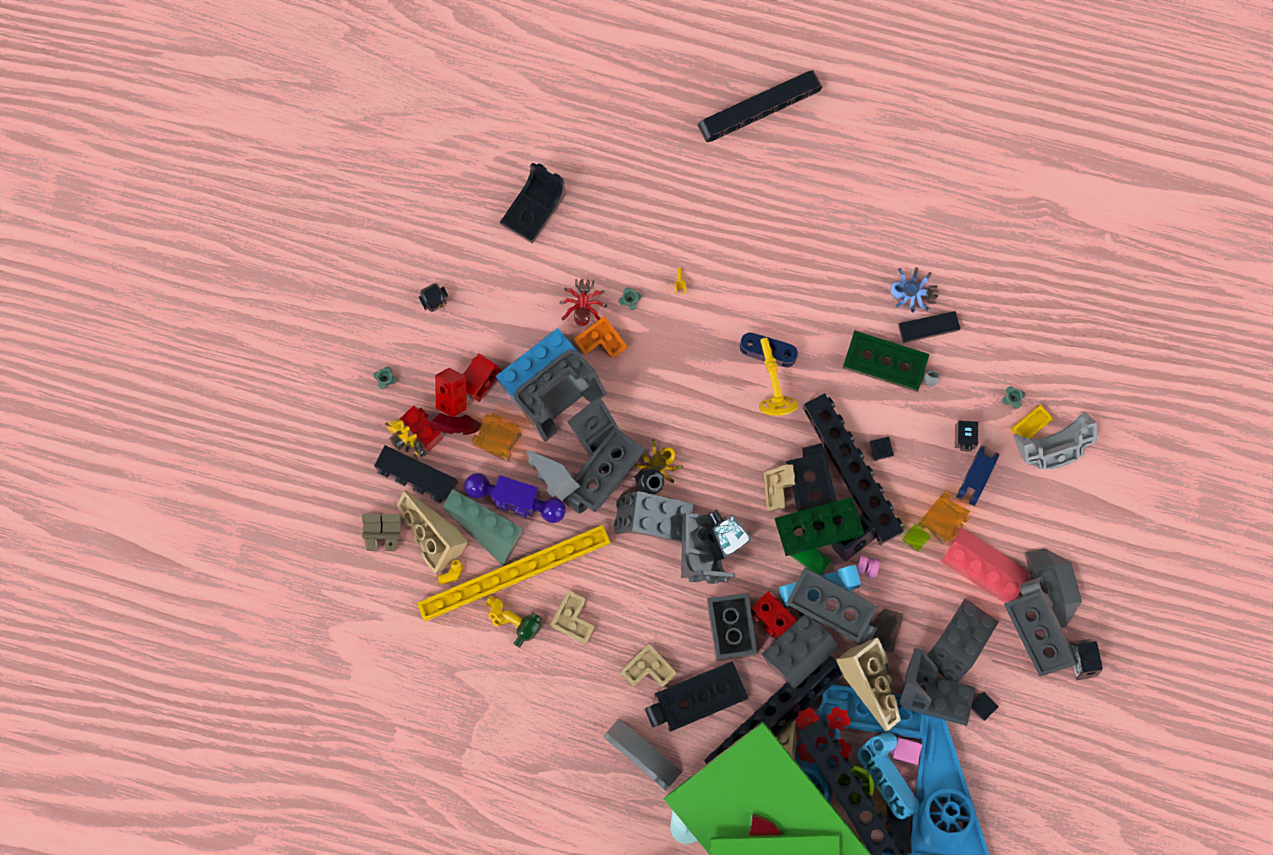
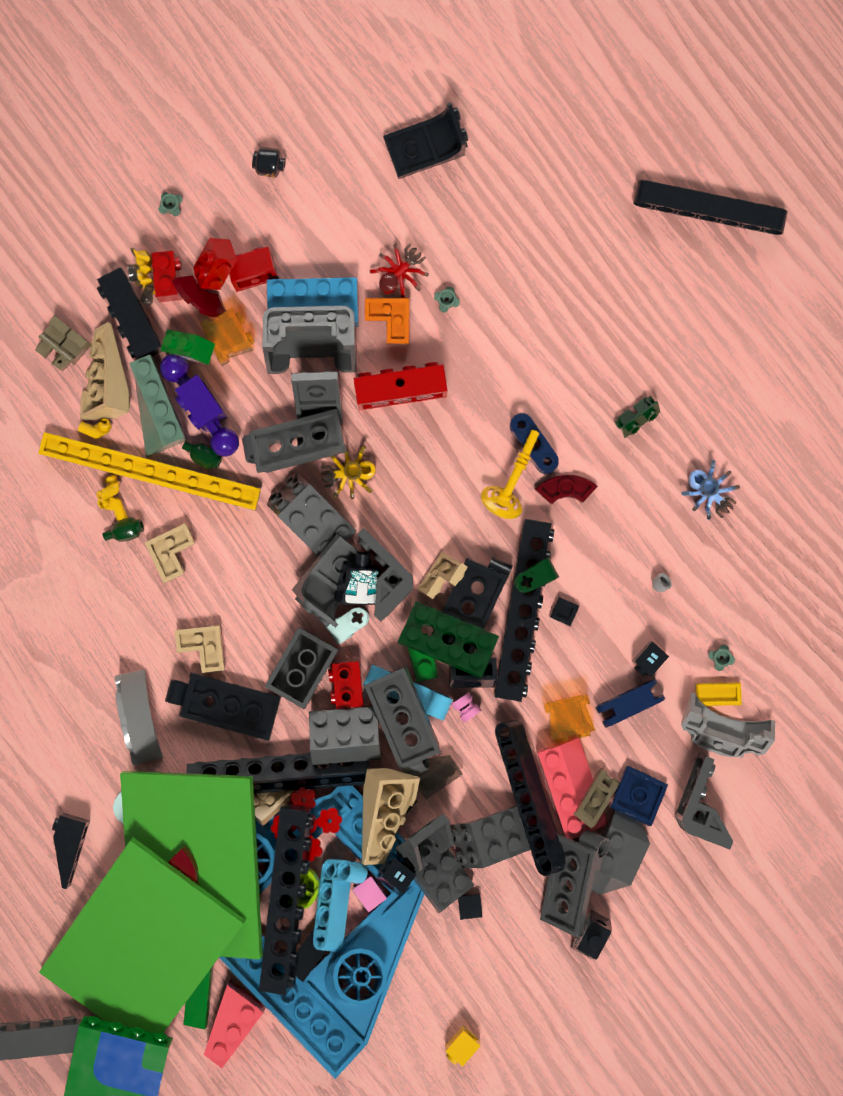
camera: 35 degrees right, 10 degrees up
(477, 461) = (188, 346): none -> green brick
(543, 532) = (203, 455): none -> dark green plant
(556, 475) = (249, 419): light grey slope -> none
(646, 379) = (417, 383): none -> red brick
(650, 480) = (330, 482): black head -> none
(680, 284) = (503, 320): yellow hand -> none
(741, 573) = (347, 626): none -> light aqua piece
(752, 526) = (387, 594): none -> dark grey bracket
(813, 363) = (566, 487): none -> dark red tile
(826, 270) = (646, 411): none -> dark green hinge
(845, 434) = (539, 575): none -> dark green piece
(882, 348) = (648, 536): dark green plate -> none
(916, 538) = (531, 714): clear neon green tile -> none
(916, 721) = (395, 876): none -> black brick
(929, 327) = (698, 534): black tile -> none
(967, 601) = (530, 797): none -> black beam
(1009, 557) = (596, 798): none -> dark tan plate
(1036, 535) = (638, 796): none -> dark blue plate
(1060, 811) = (462, 1046): none -> yellow brick
(1088, 516) = (707, 823): none -> dark grey bracket

